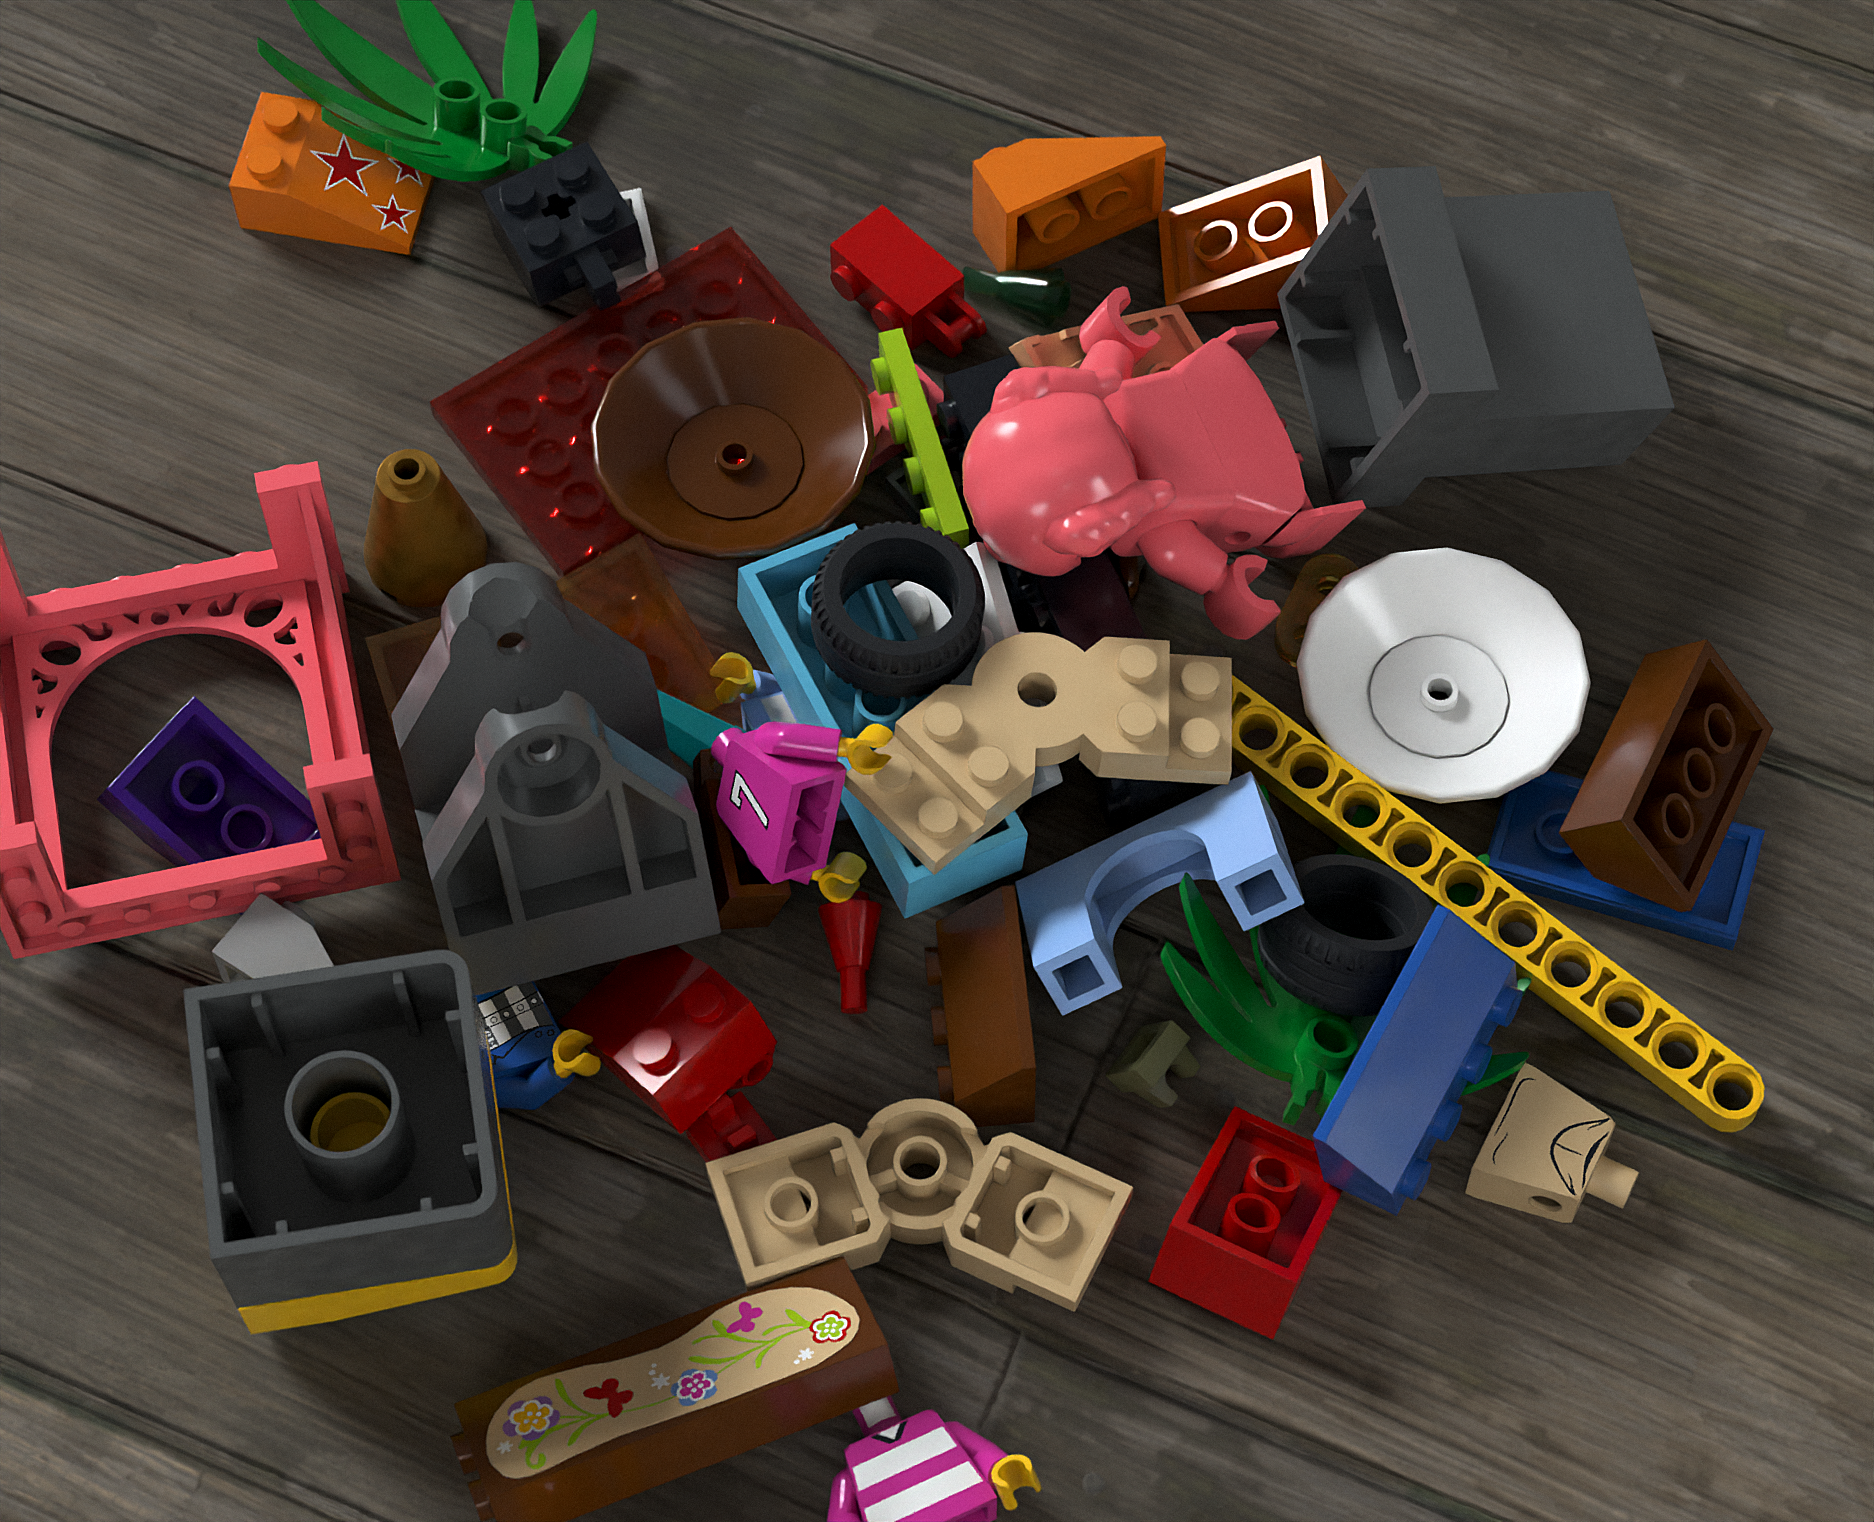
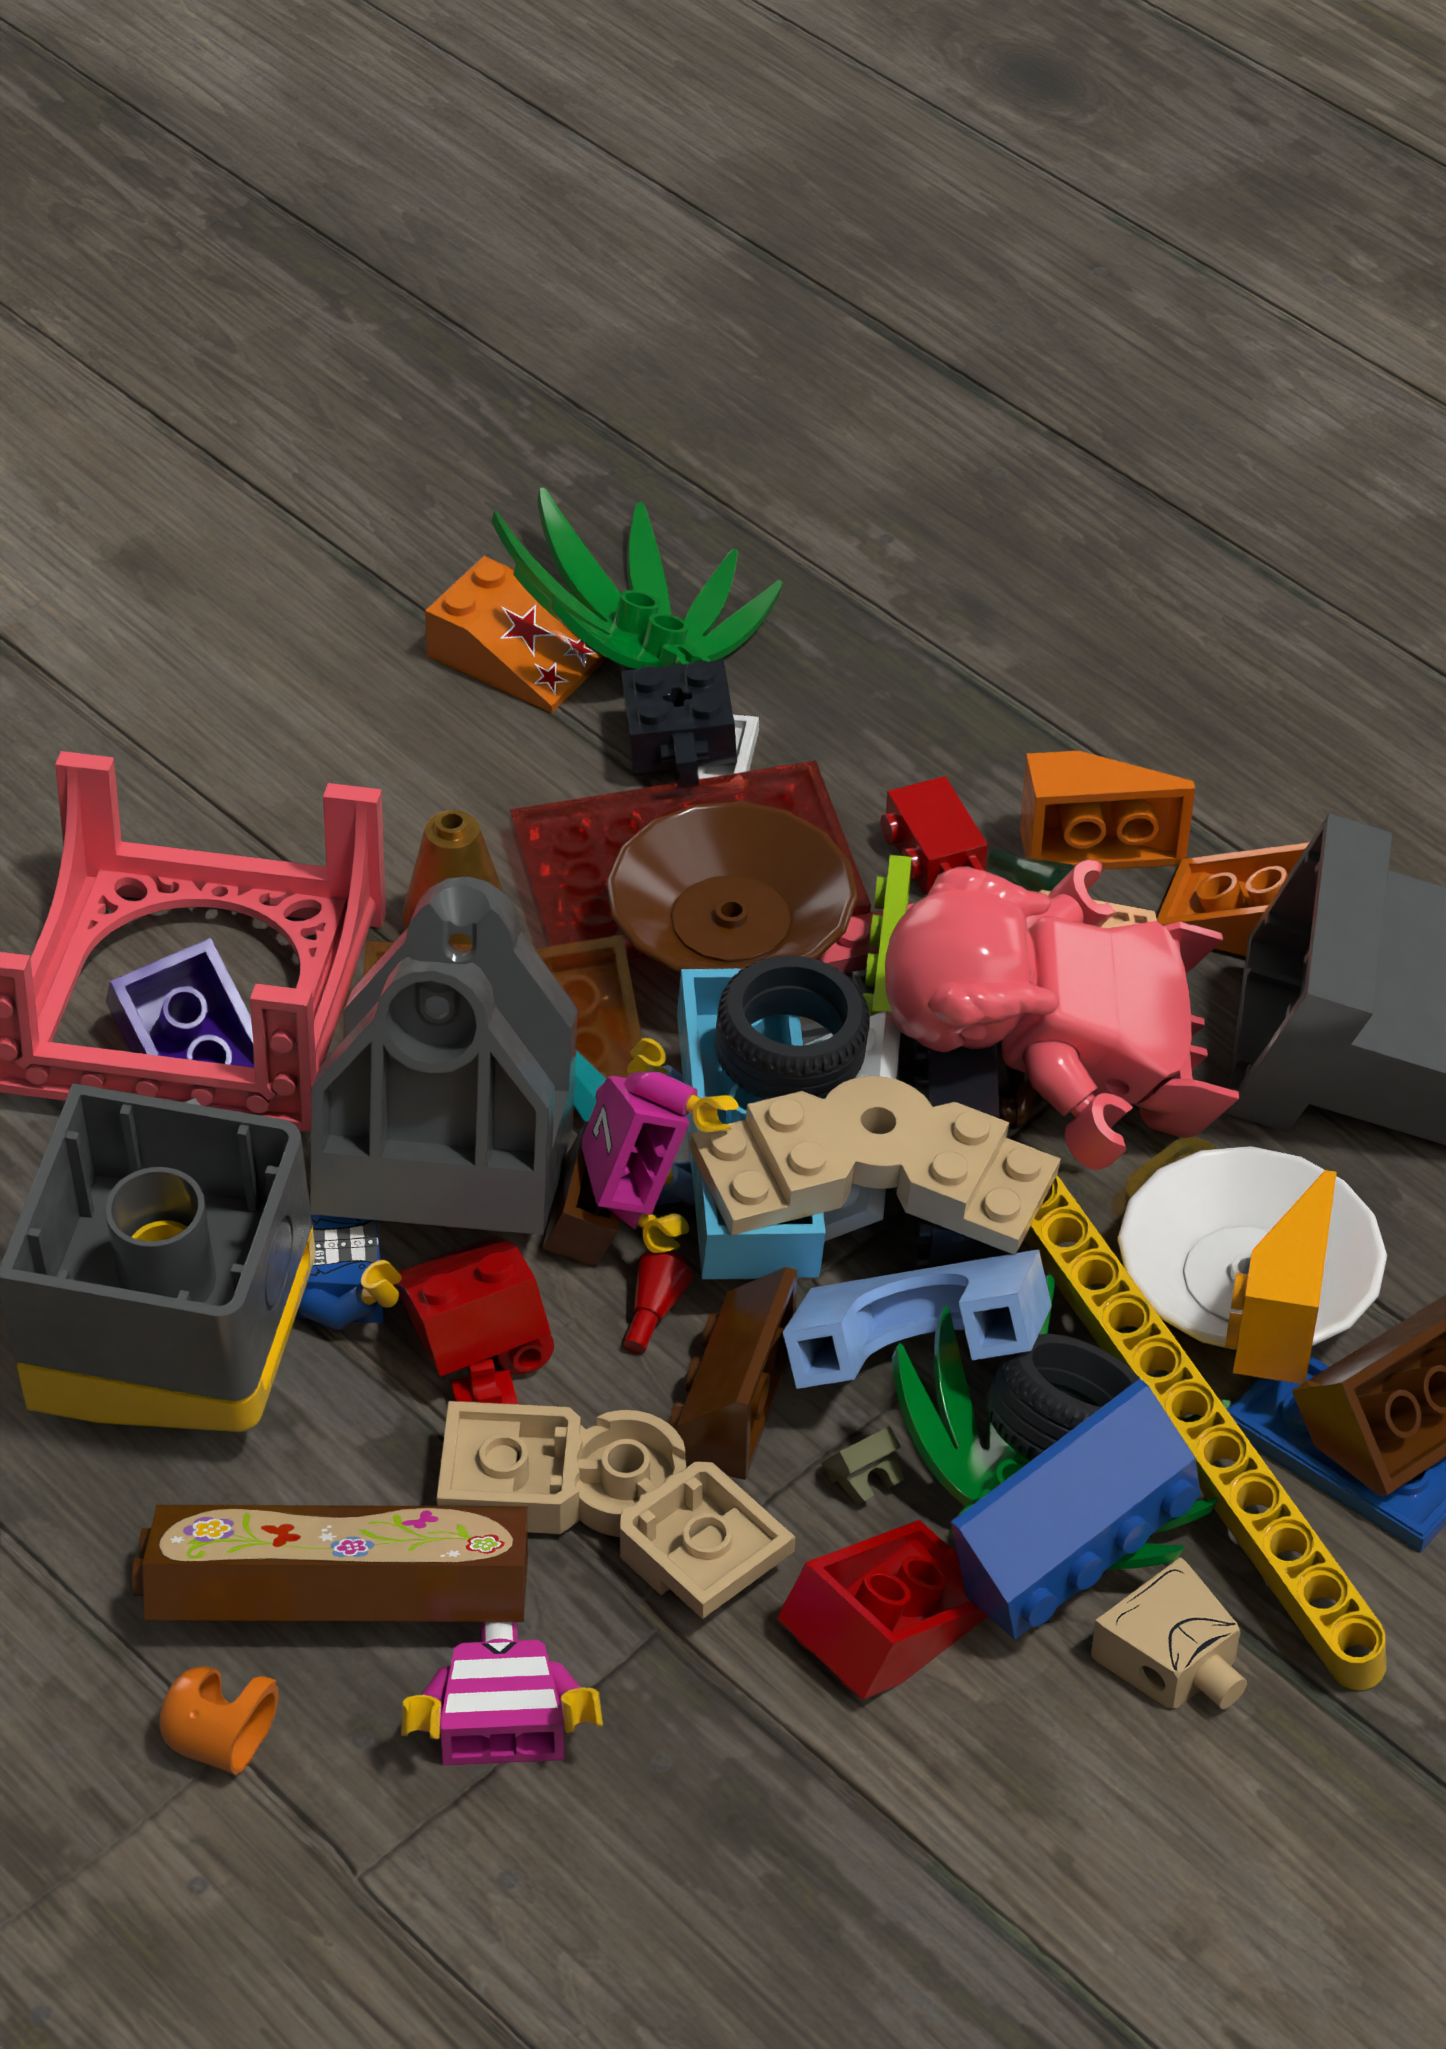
camera: 20 degrees right, 15 degrees down
(1528, 738) = (1283, 1290): none -> light orange slope

